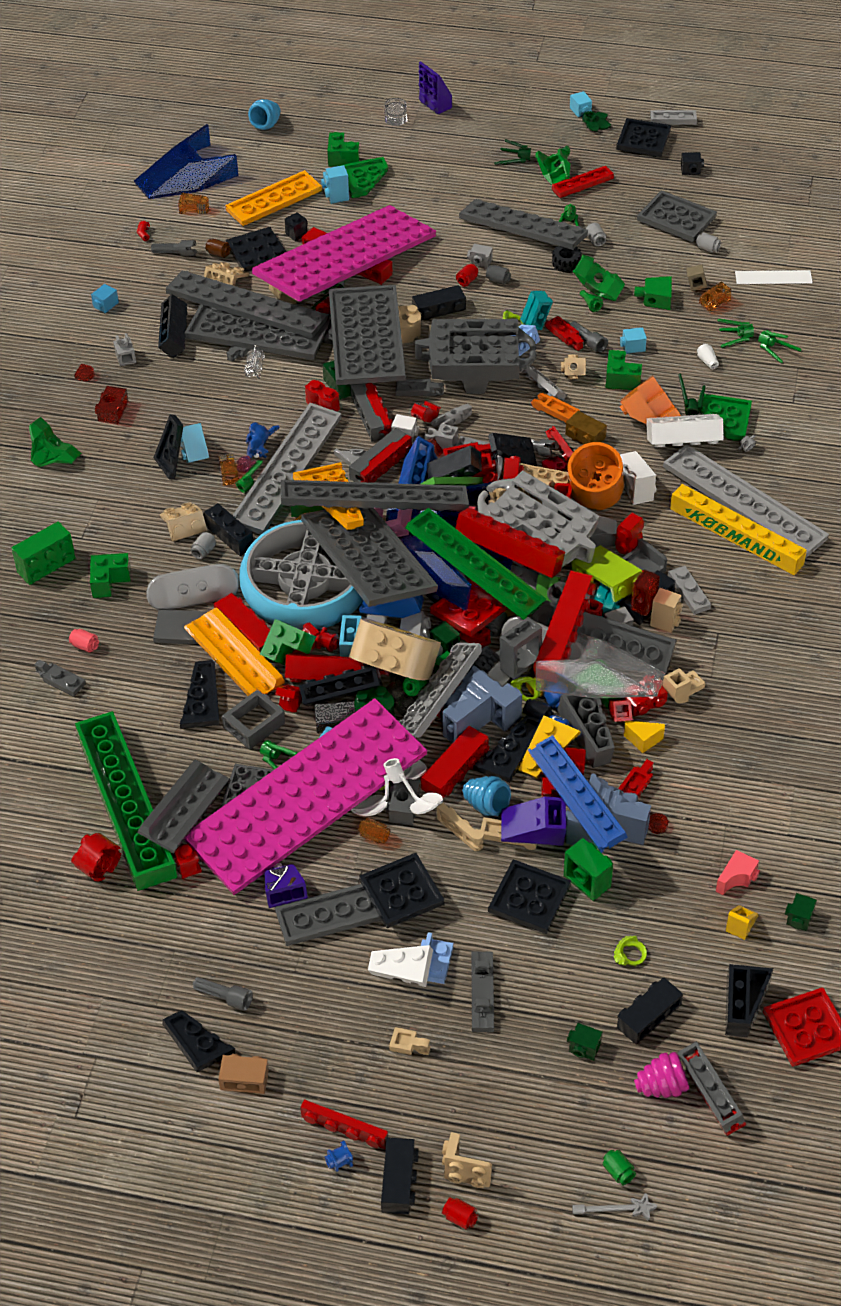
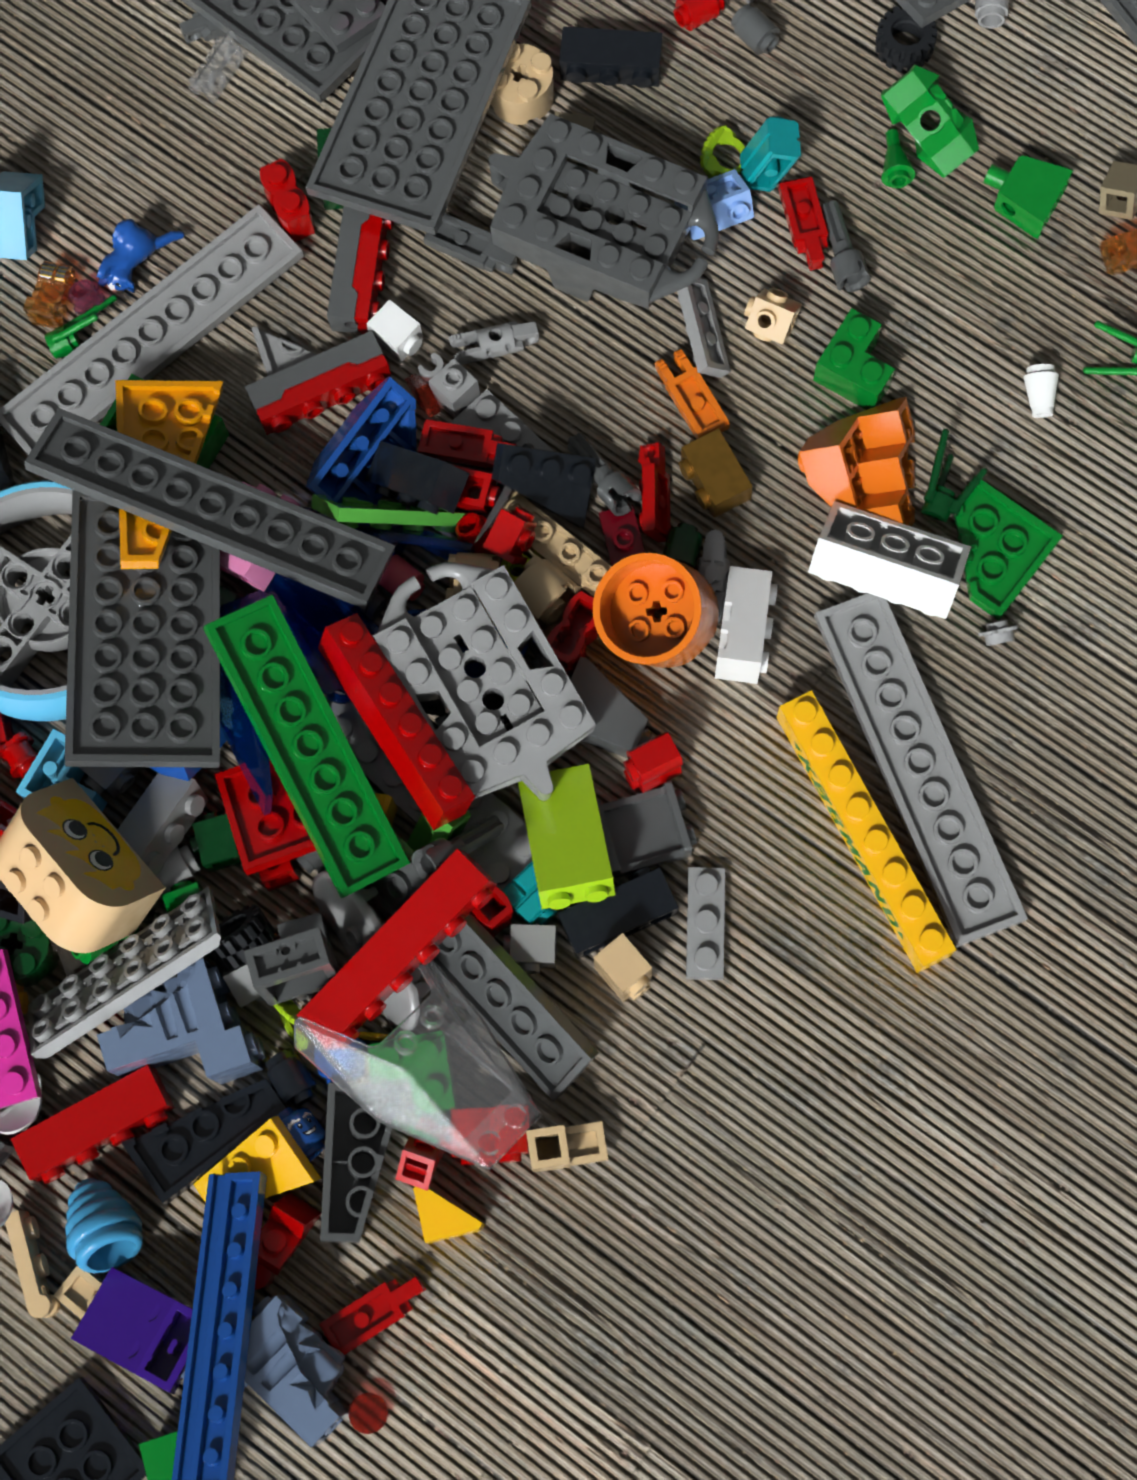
camera: 30 degrees right, 25 degrees up
(426, 411) = (445, 313): red leg -> none
(633, 340) = (920, 293): medium azure brick -> none
(644, 592) = (591, 930): clear red brick -> none

